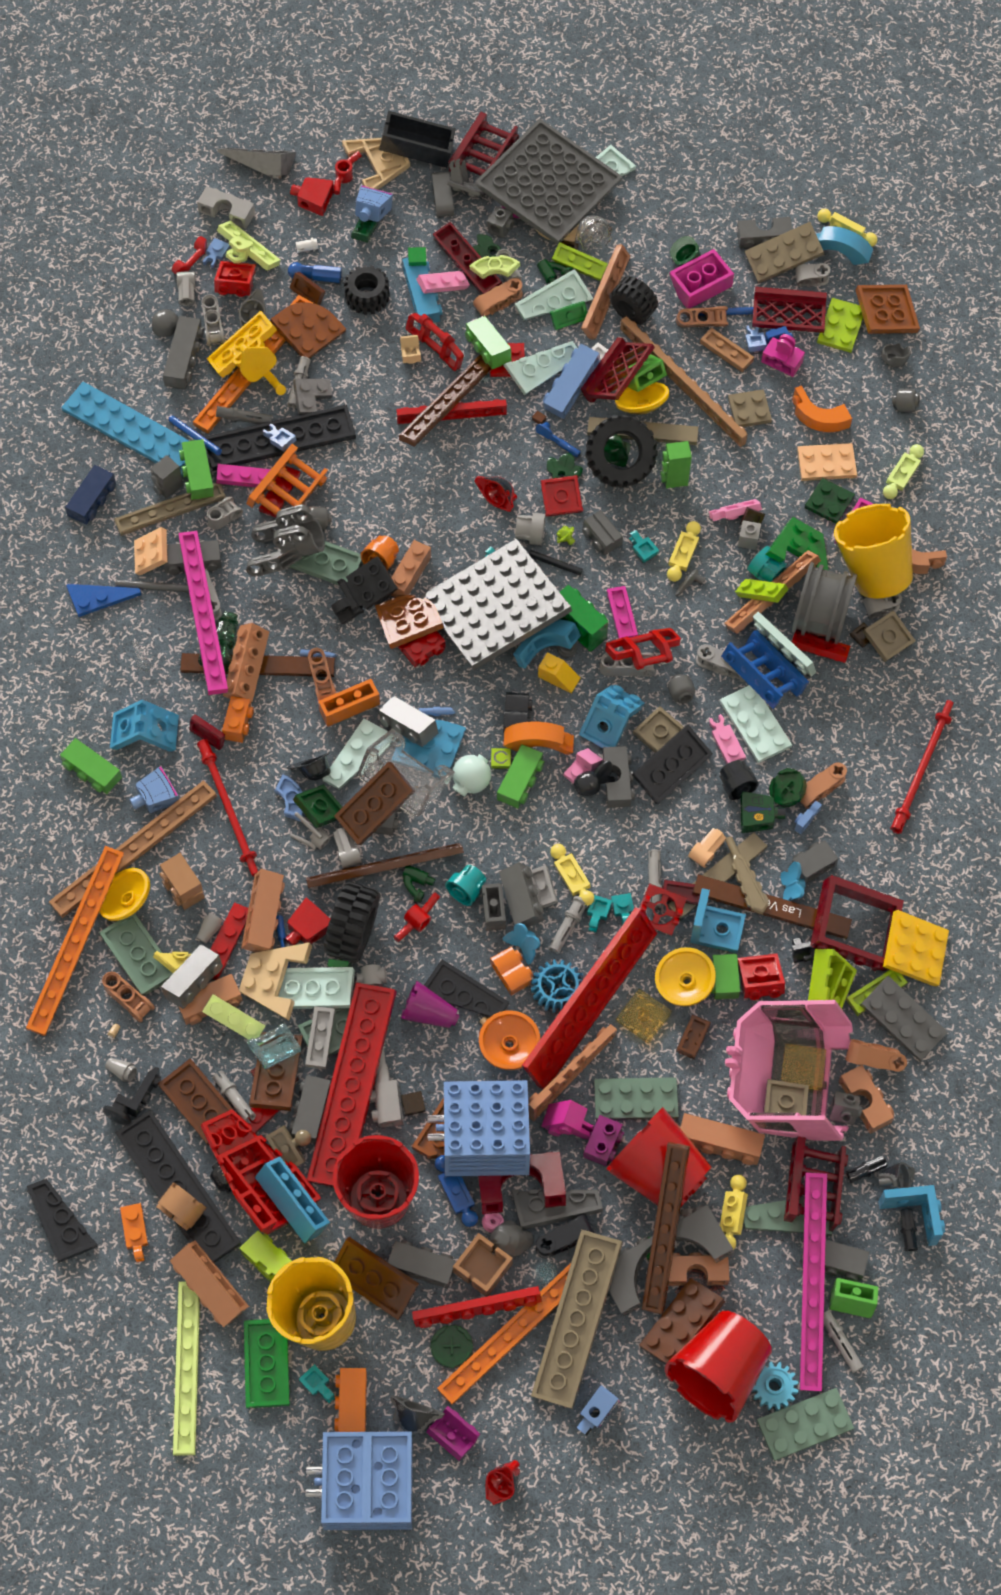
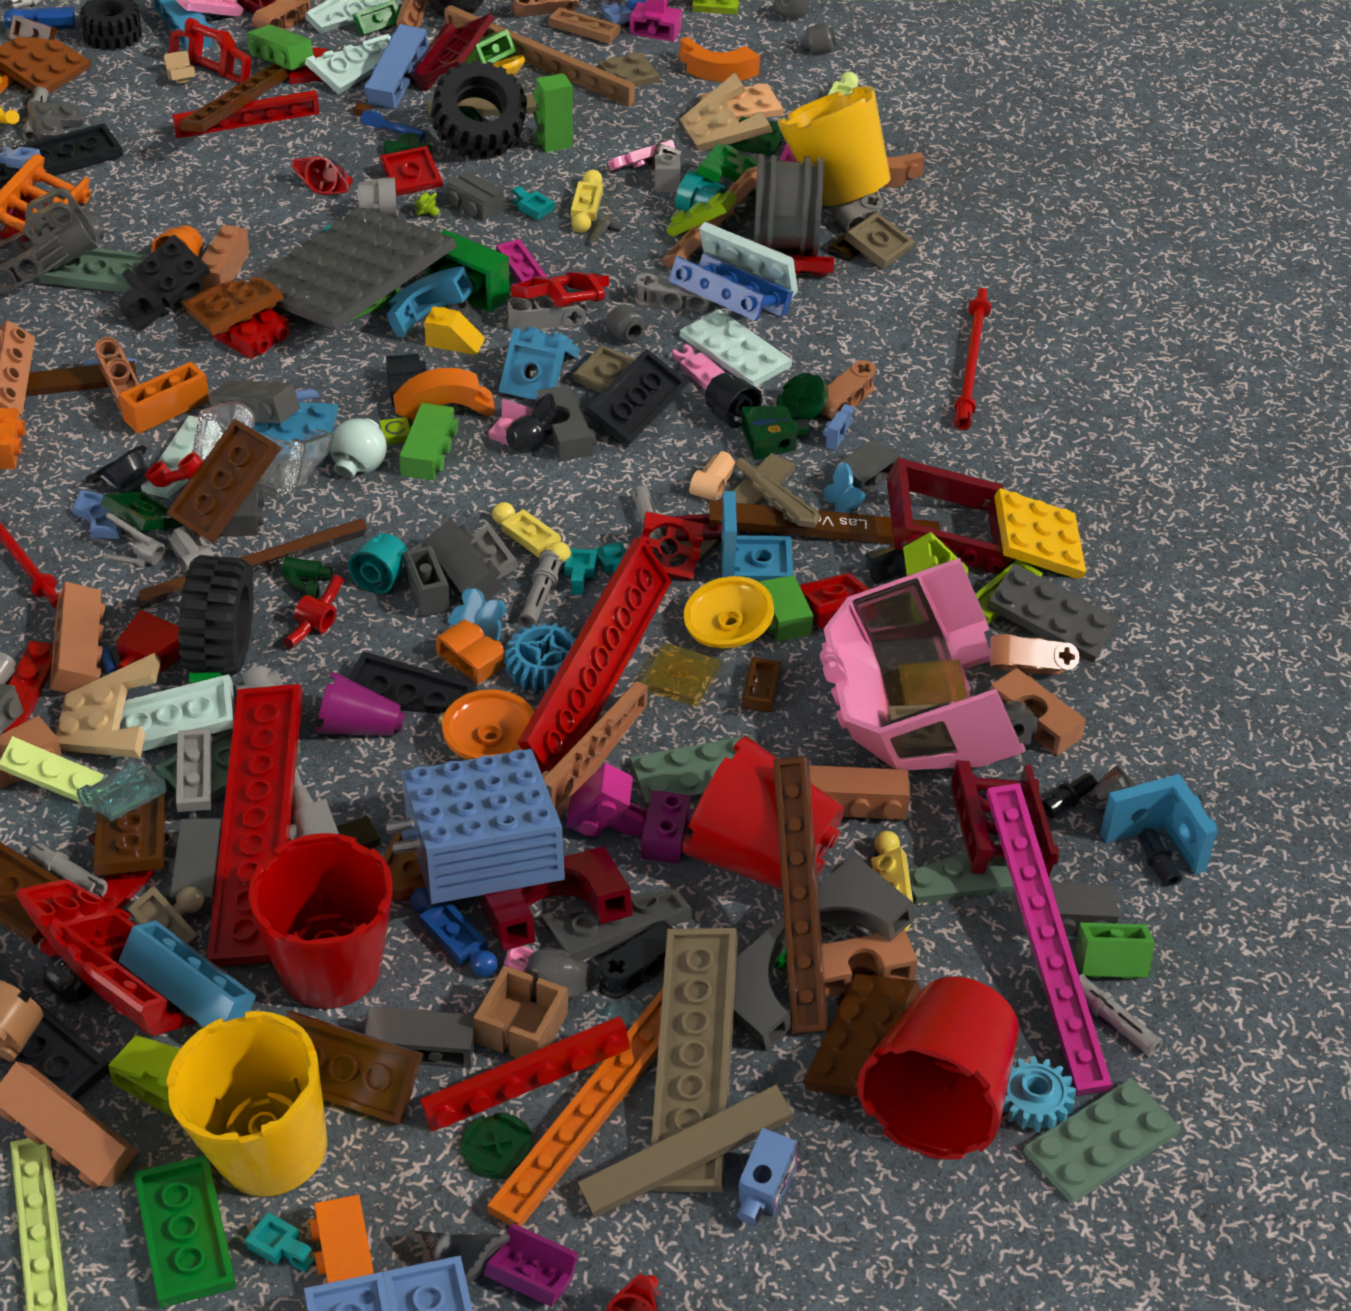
camera: 15 degrees left, 20 degrees down
(337, 778) = (162, 476): none -> red bar
(556, 1382) = (685, 1151): none -> dark tan tile
(797, 482) = (715, 123): none -> tan wing

